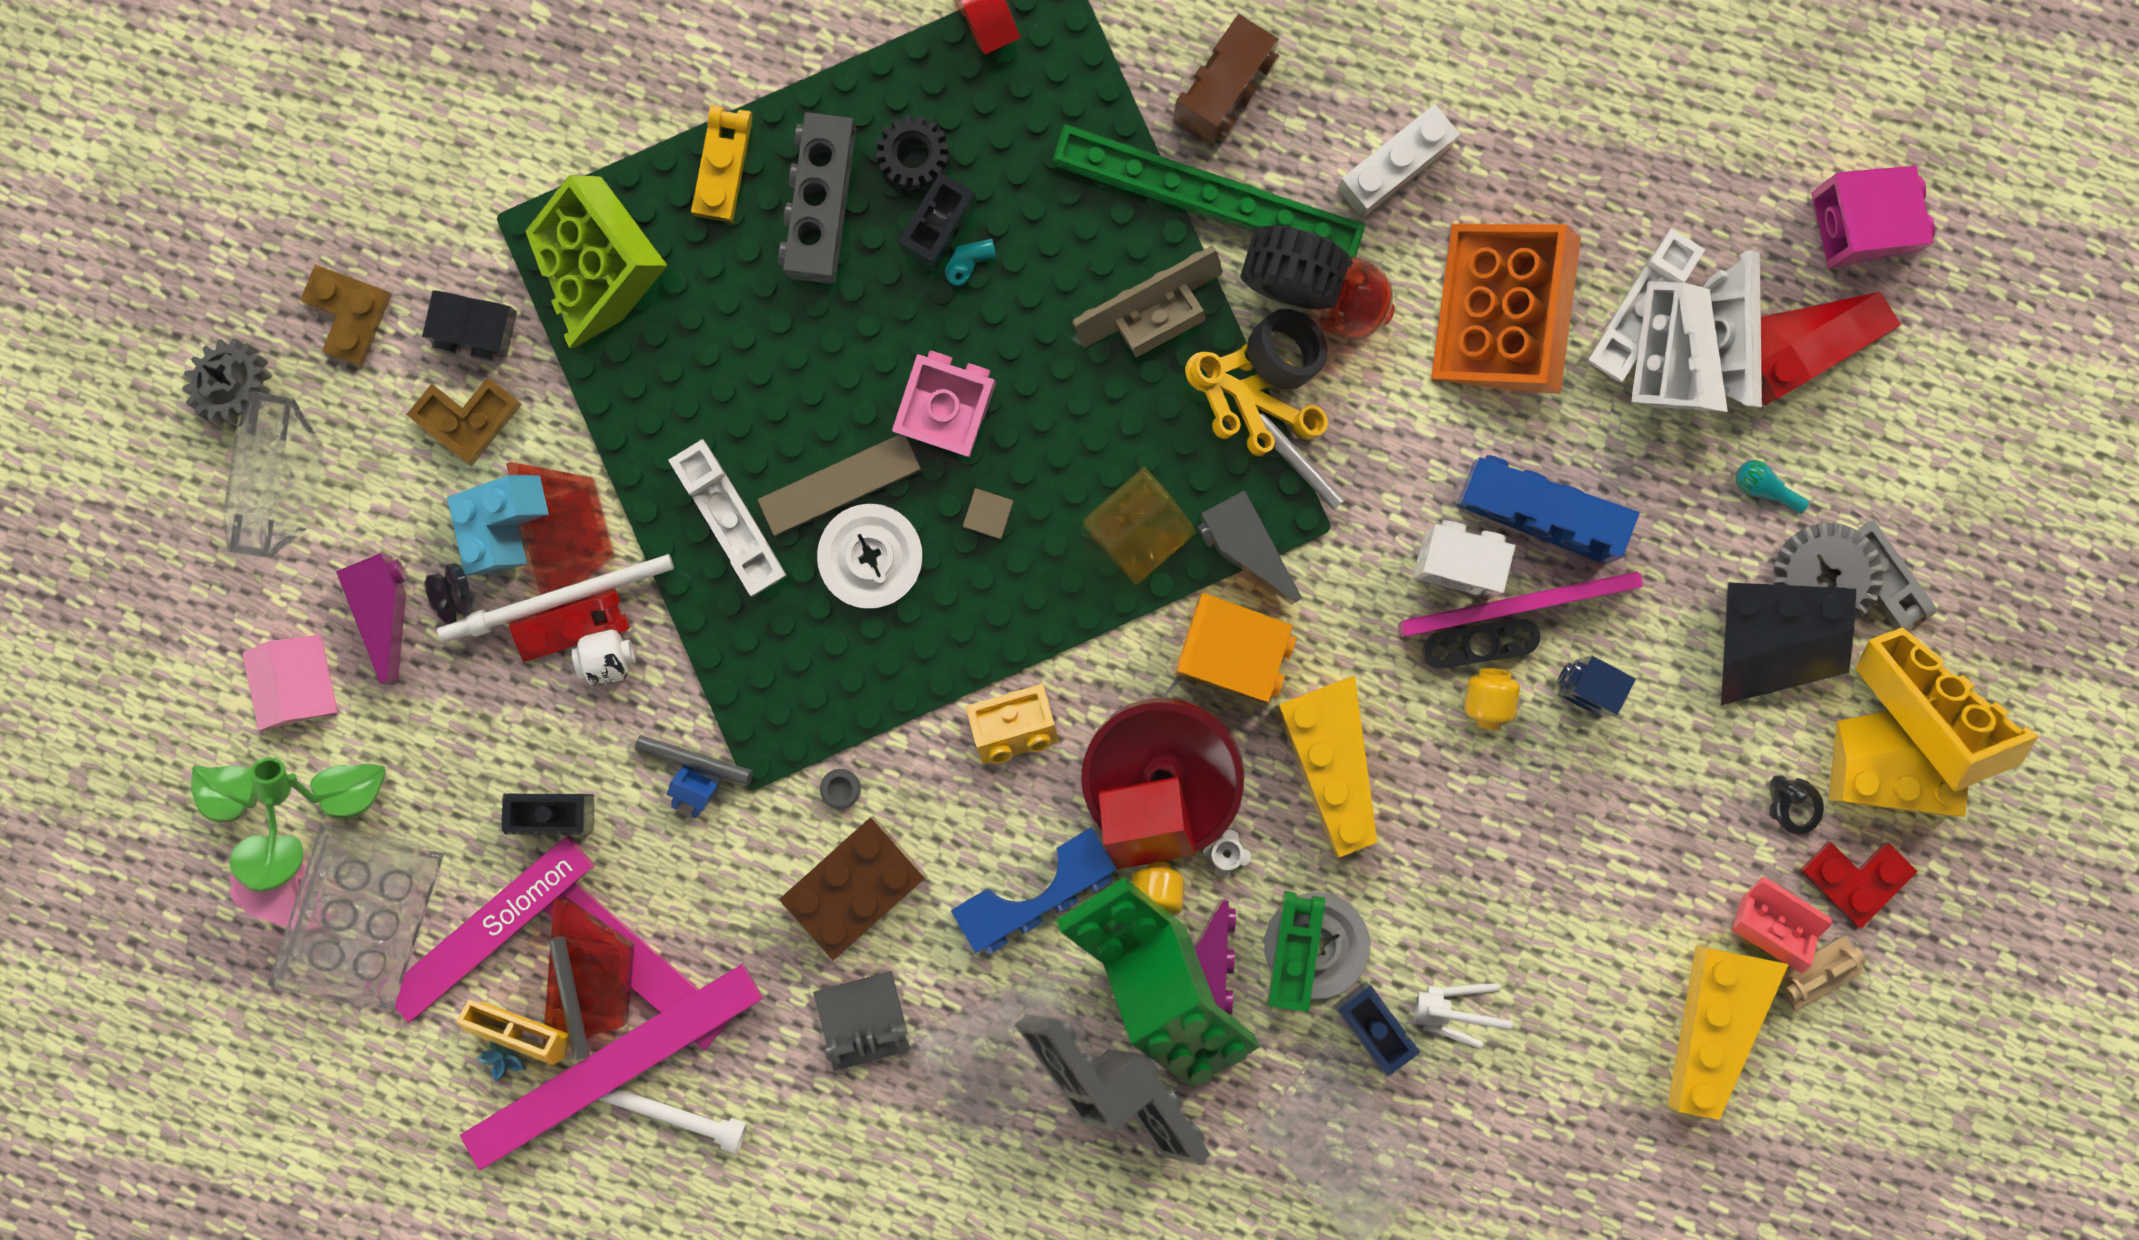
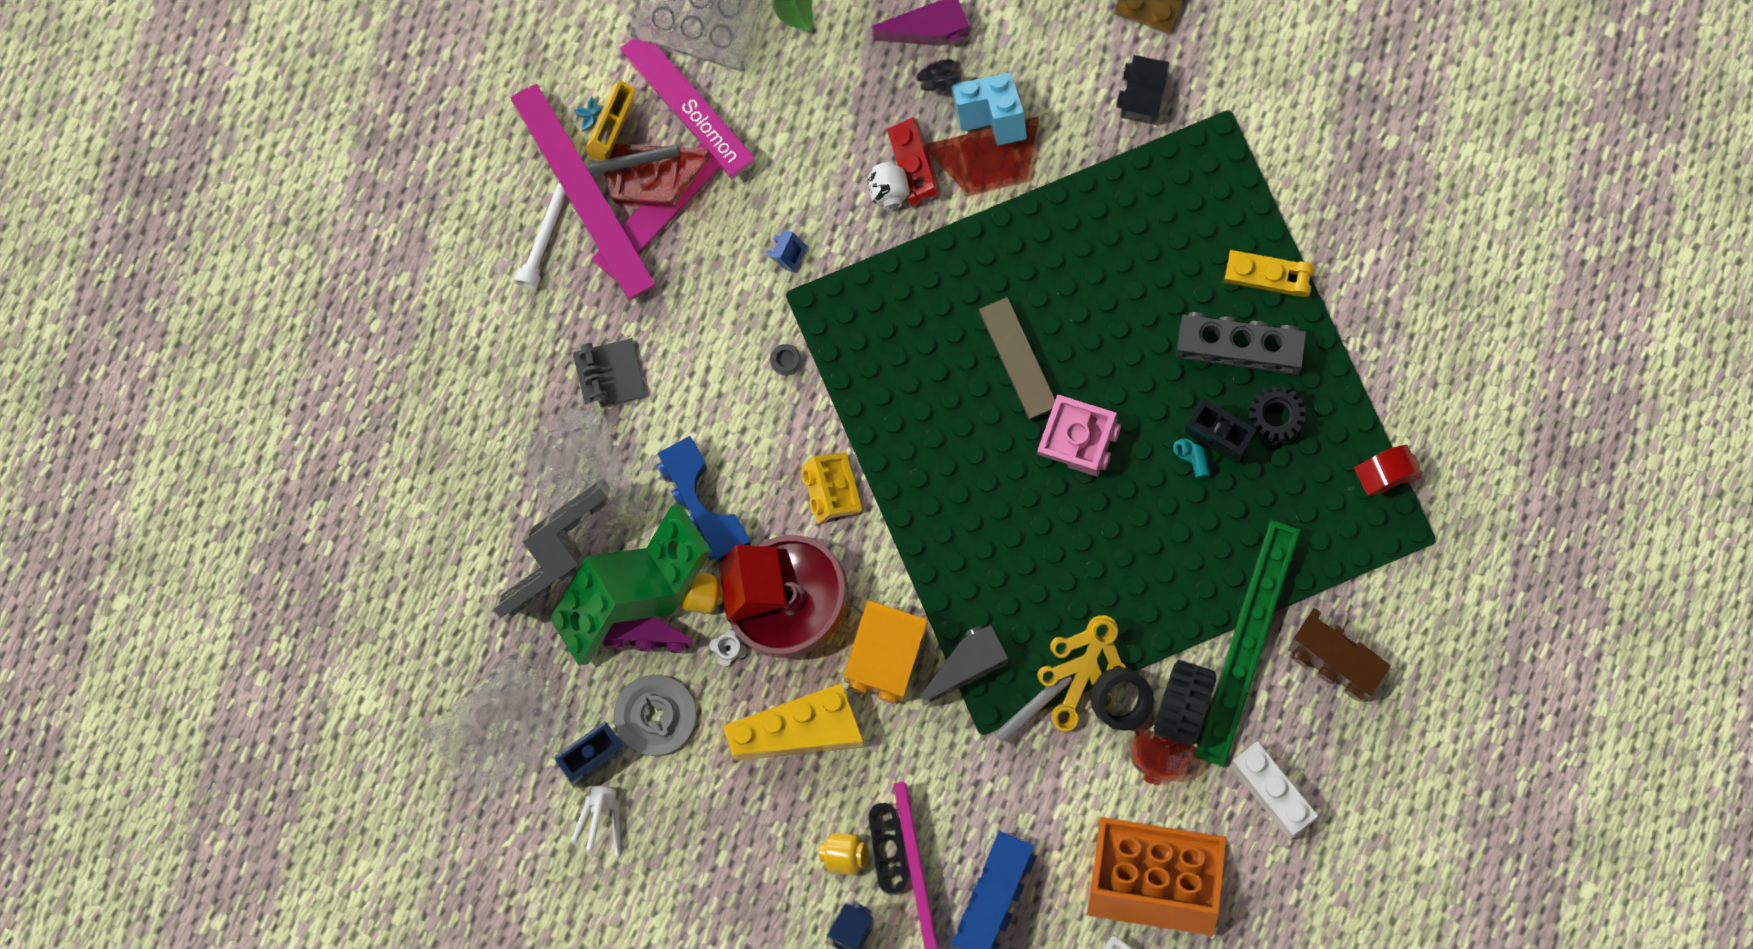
camera: 90 degrees right, 10 degrees down
(465, 429) = (1065, 88): pearl gold plate -> none
(482, 622) = (916, 98): white bar -> none
(547, 814) = (771, 145): black brick -> none
(592, 256) = (1194, 176): lime wedge -> none
(694, 760) = (809, 252): dark grey bar -> none
(728, 517) = (994, 276): white slope -> none
(842, 548) = (968, 360): white gear -> none
(853, 888) = (709, 366): reddish brown brick -> none
(988, 514) = (994, 469): dark tan tile -> none
(1139, 526) = (982, 580): clear yellow slope -> none
(1154, 308) = (1154, 597): dark tan bracket -> none
(1295, 953) = (649, 693): green plate -> none
(1464, 560) = (951, 828): white piece -> none

